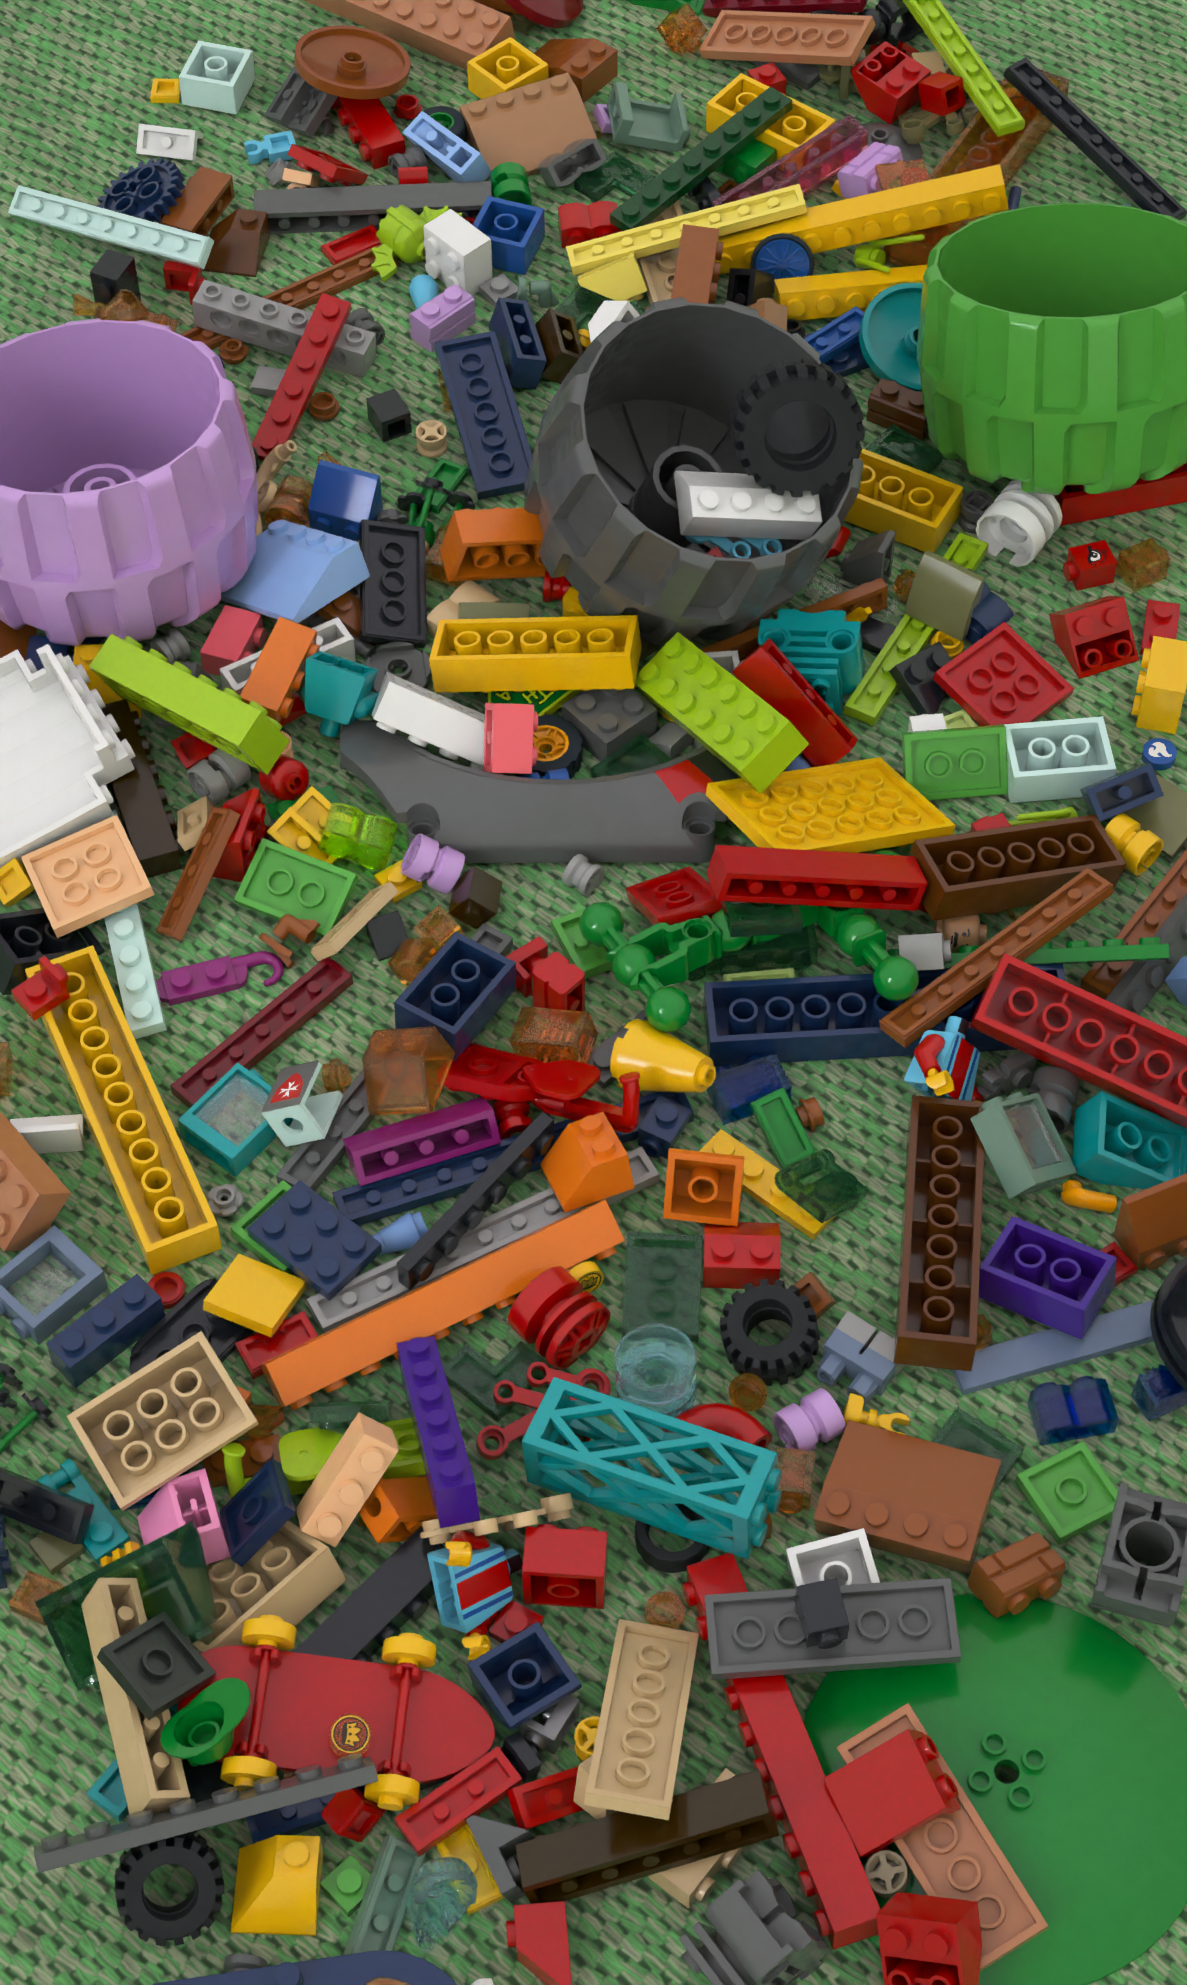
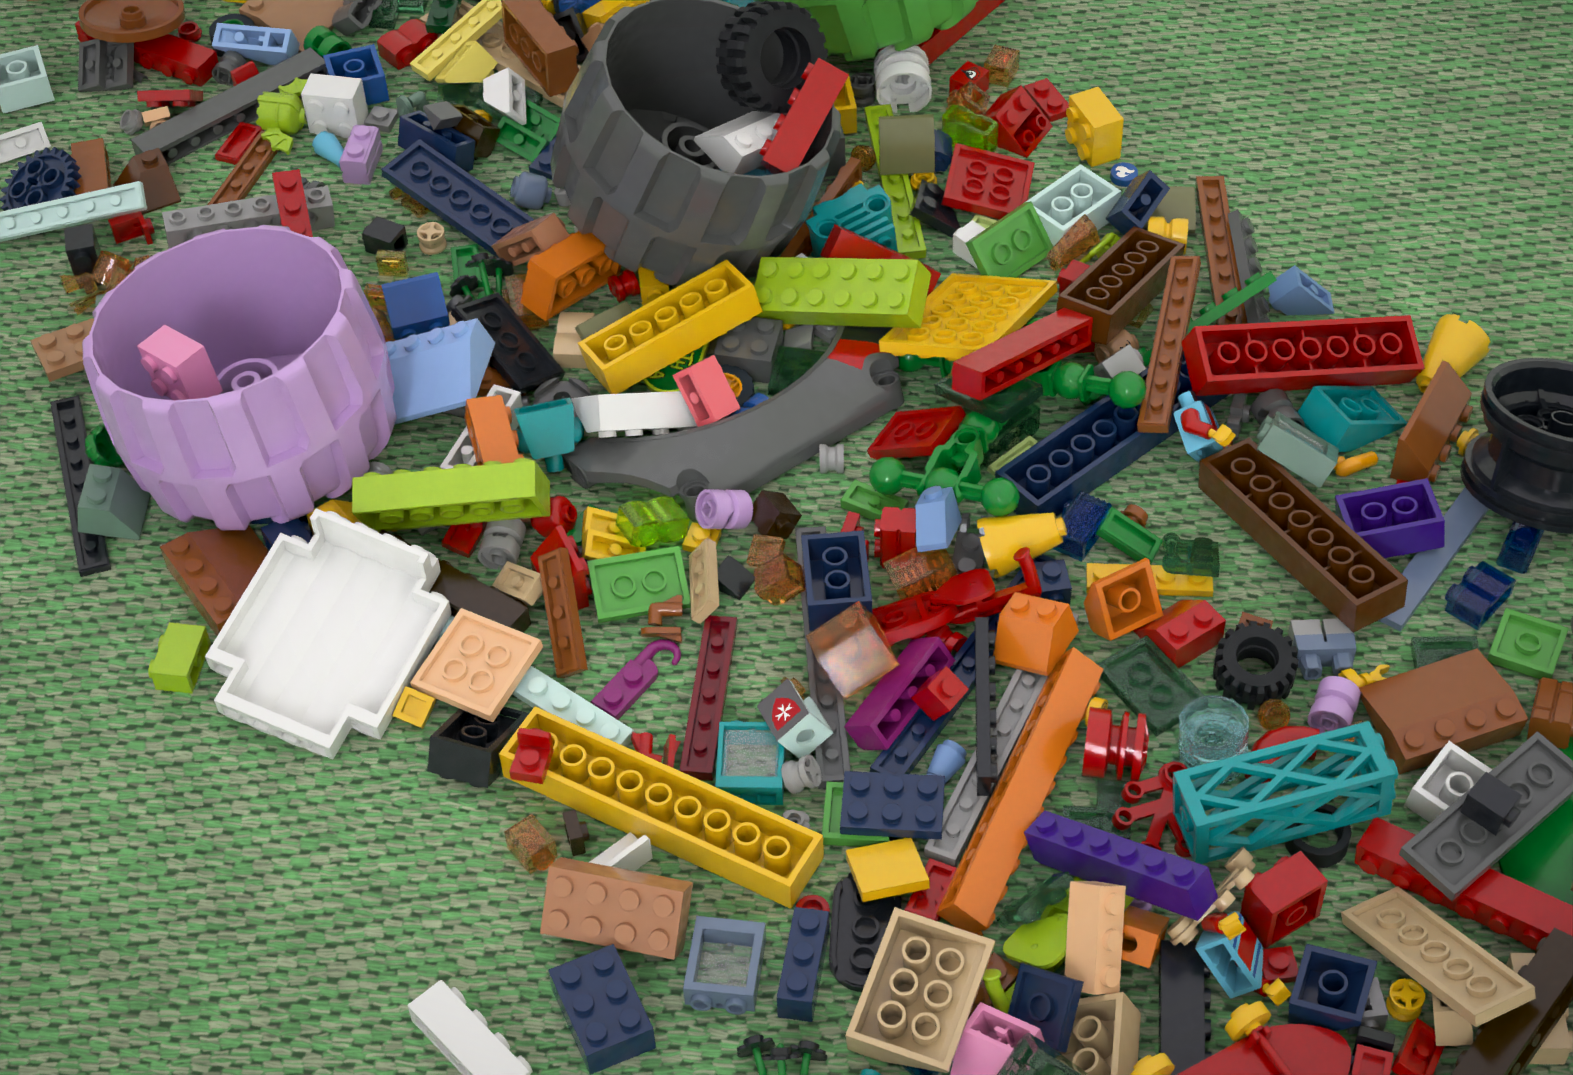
camera: 35 degrees left, 5 degrees down
(32, 442) = (178, 366): none -> bright pink brick
(35, 1083) = (576, 832): none -> dark brown plate
(153, 1056) = (644, 743): none -> red piece
(232, 638) = (419, 444): coral brick -> none
(272, 147) = (110, 105): medium azure plate -> none
(272, 1157) = (801, 774): none -> light grey wheel
(373, 443) = (392, 263): none -> clear yellow plate
(444, 1163) = (939, 693): none -> red brick
(497, 490) = (530, 239): none -> nougat brick
(533, 317) = (442, 115): none -> dark grey slope
(592, 993) = (936, 518): none -> medium blue slope
(665, 1610) = (1361, 887): clear orange plate -> none
(784, 510) = (804, 118): none -> red slope
(1022, 796) = (1075, 242): none -> clear orange slope
(1035, 616) = (970, 128): none -> clear neon green brick
(1060, 587) = (969, 97): none -> clear orange brick

